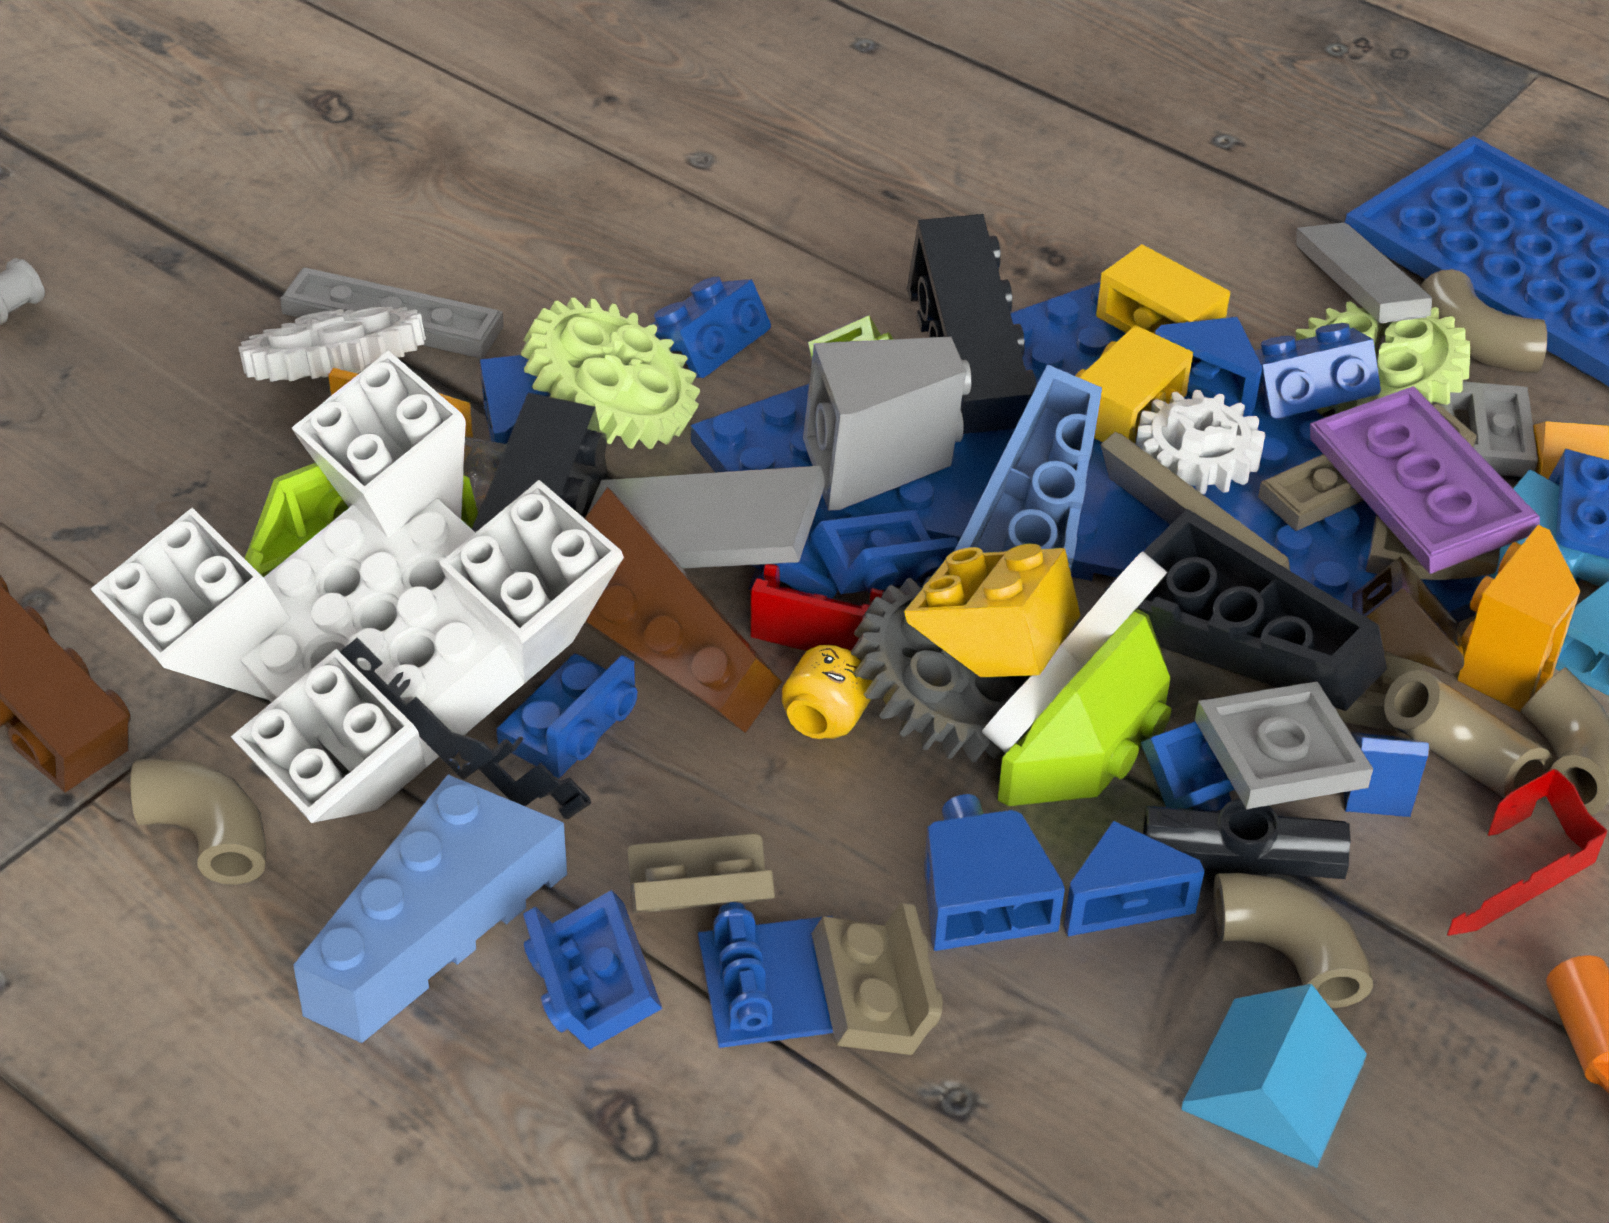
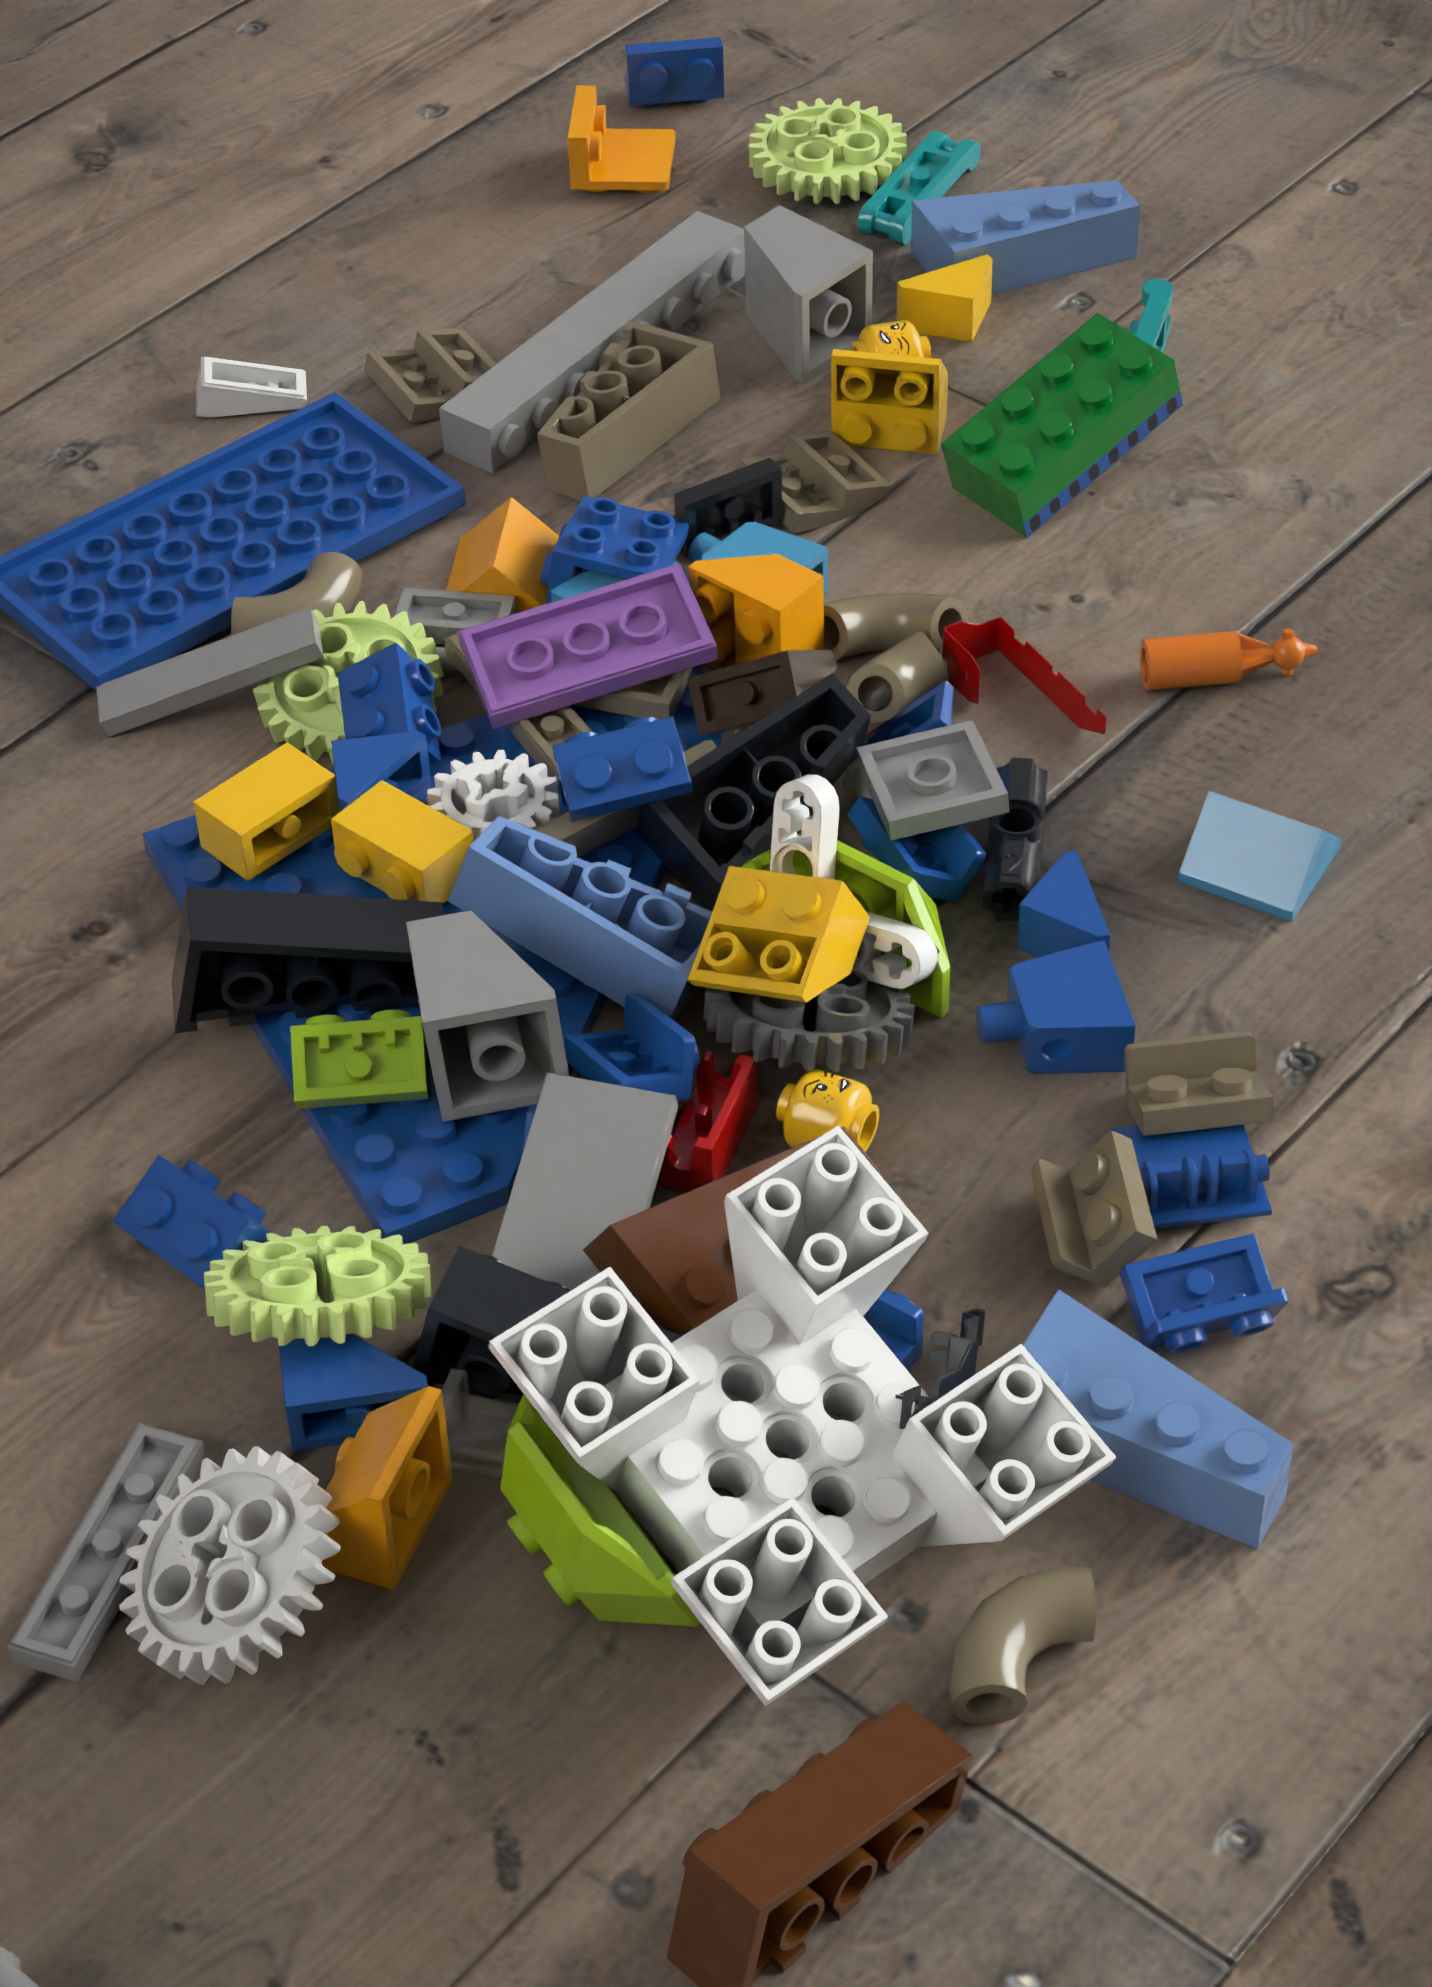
camera: 85 degrees left, 0 degrees up
(1211, 486) = (621, 768): none -> blue bracket
(1298, 926) = (1117, 810): dark tan cylinder -> none

